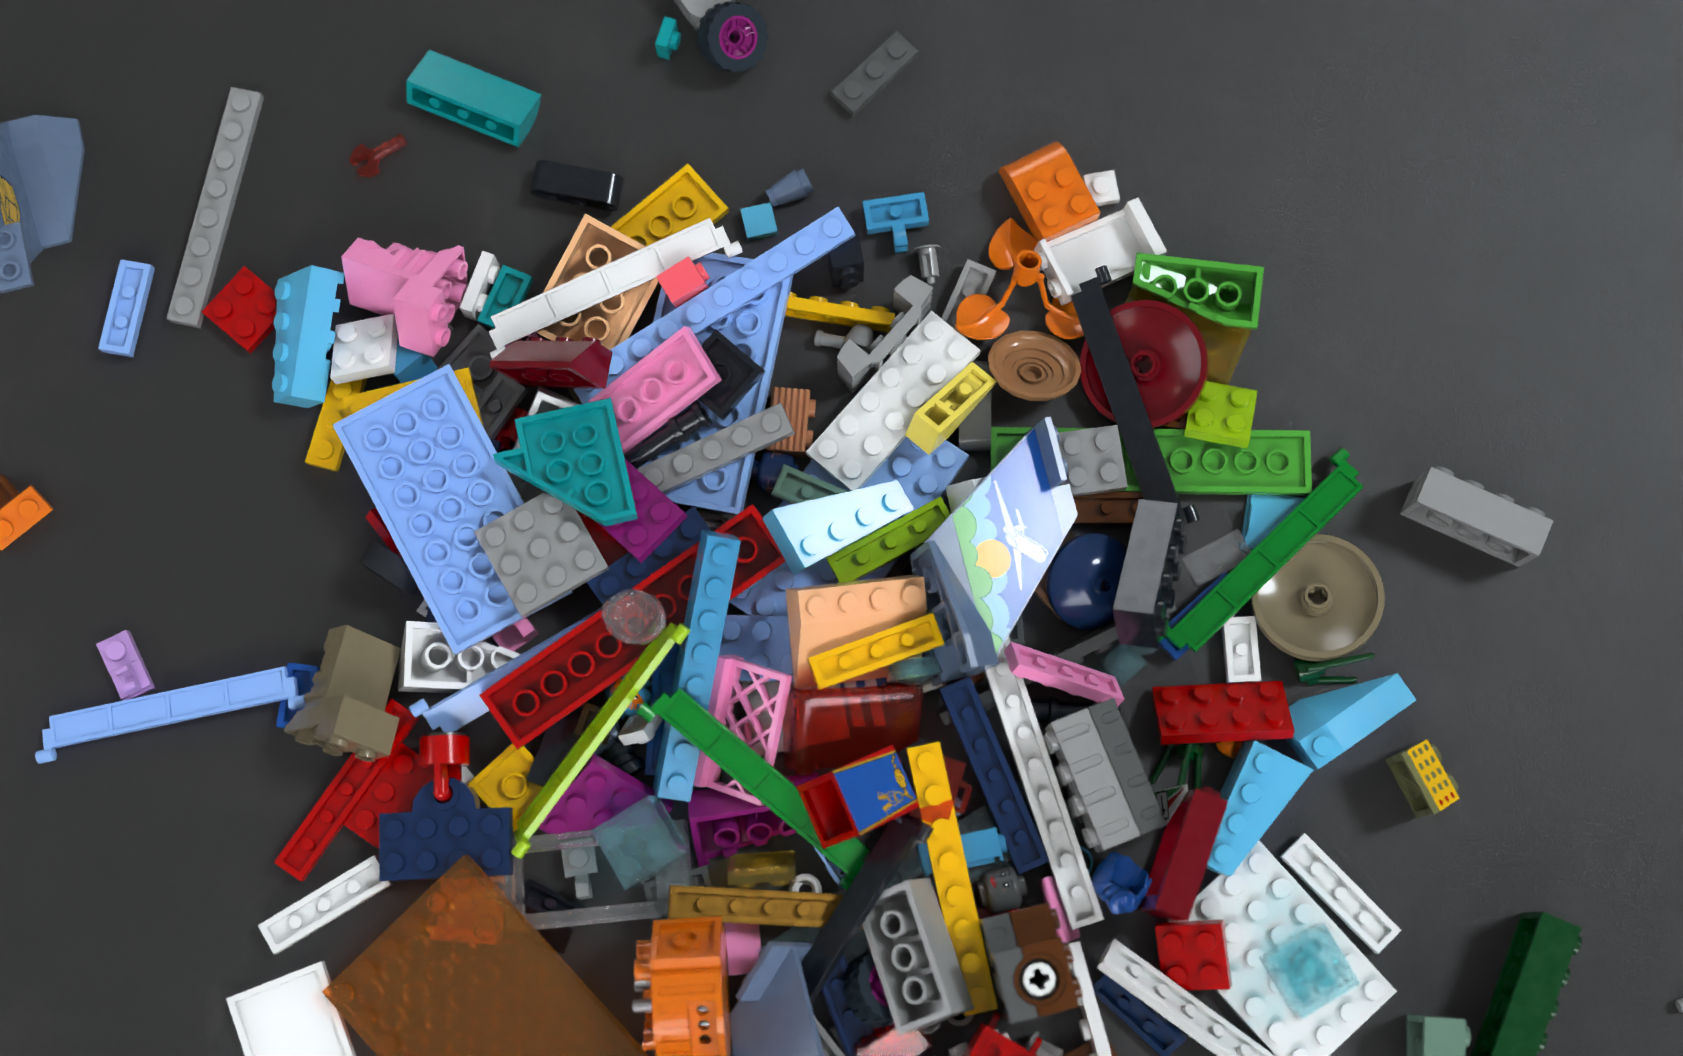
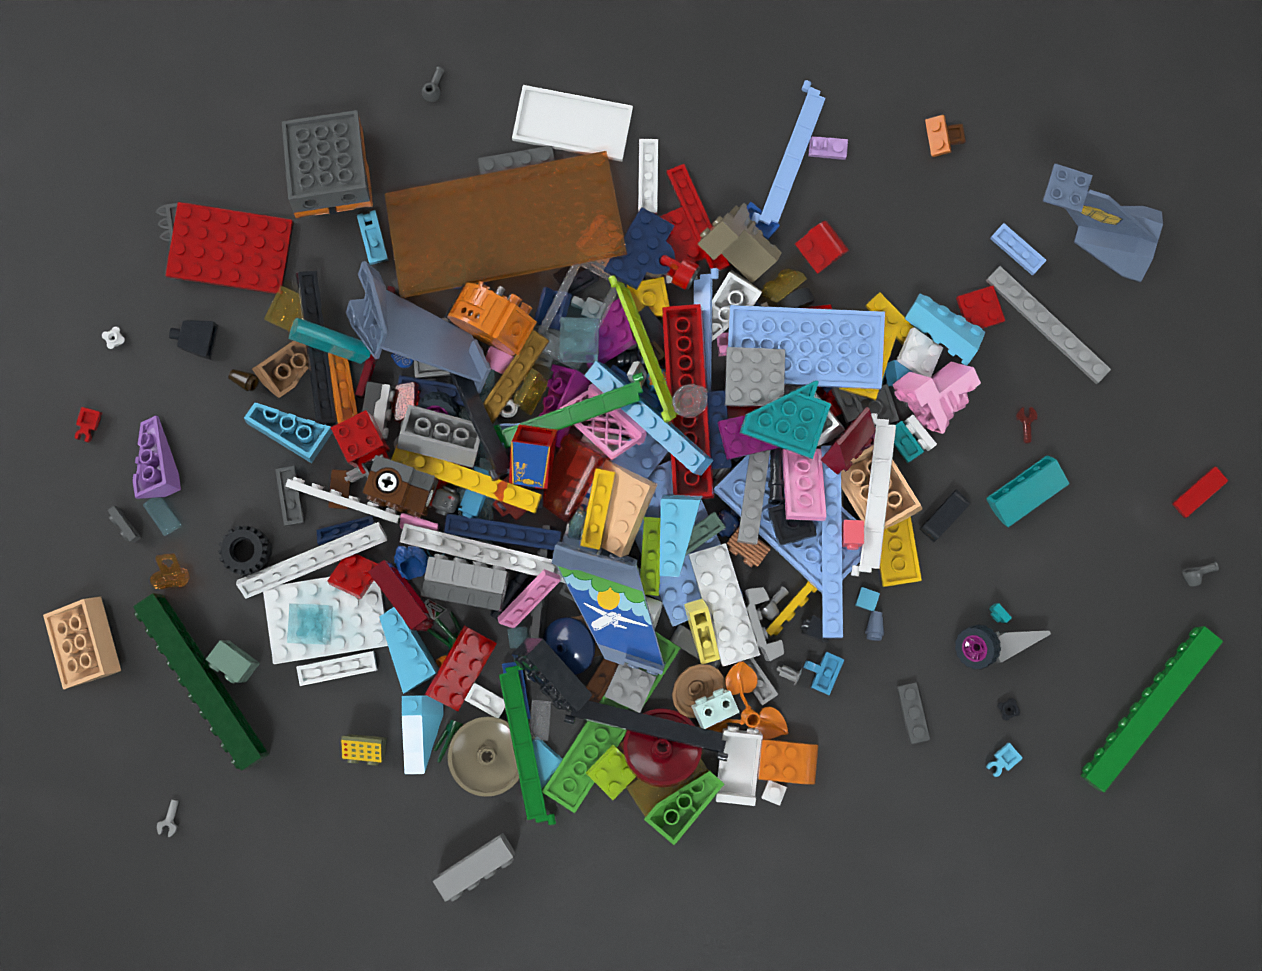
camera: 115 degrees right, 5 degrees up
(285, 582) = (821, 246): none -> red brick
(376, 600) = (783, 284): none -> clear yellow plate
(606, 935) = (544, 304): none -> dark blue bracket
(1044, 326) = (715, 710): none -> light aqua brick

